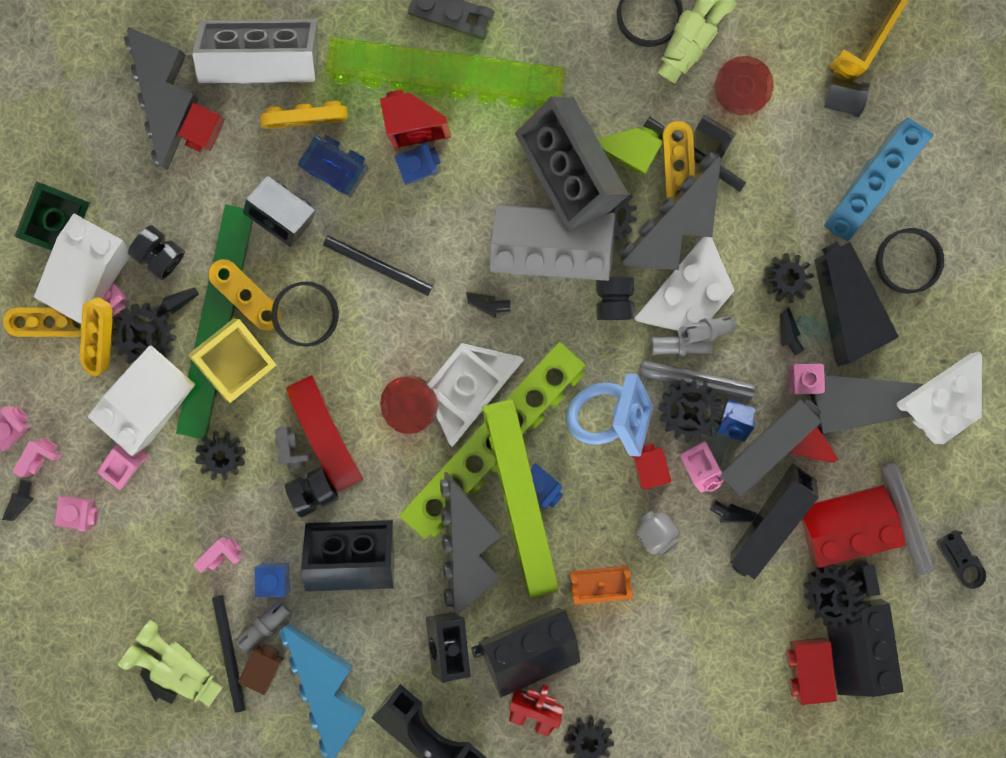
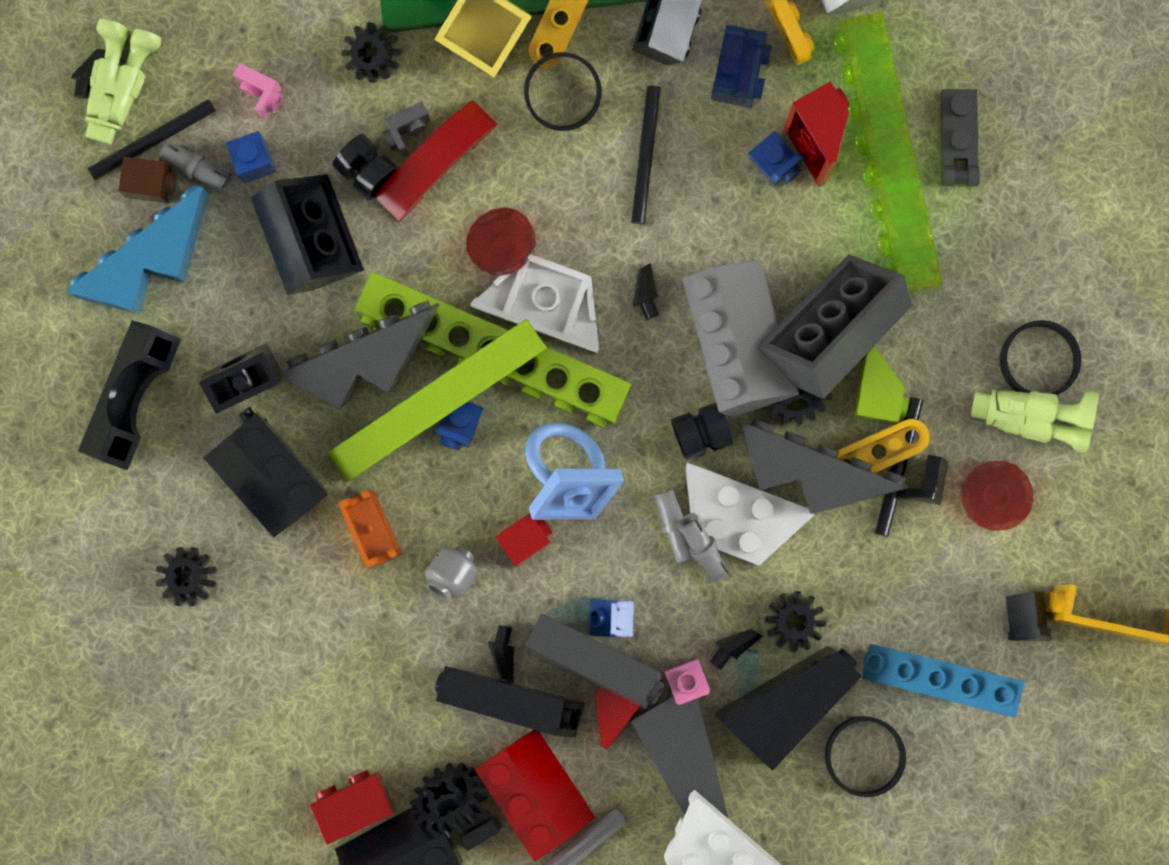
camera: 80 degrees right, 5 degrees down
(537, 707) = (206, 504): red hips -> none
(674, 374) = (642, 558): light grey axle -> none
(680, 418) = (596, 572): black gear -> none
(702, 467) = (543, 596): bright pink bracket -> none

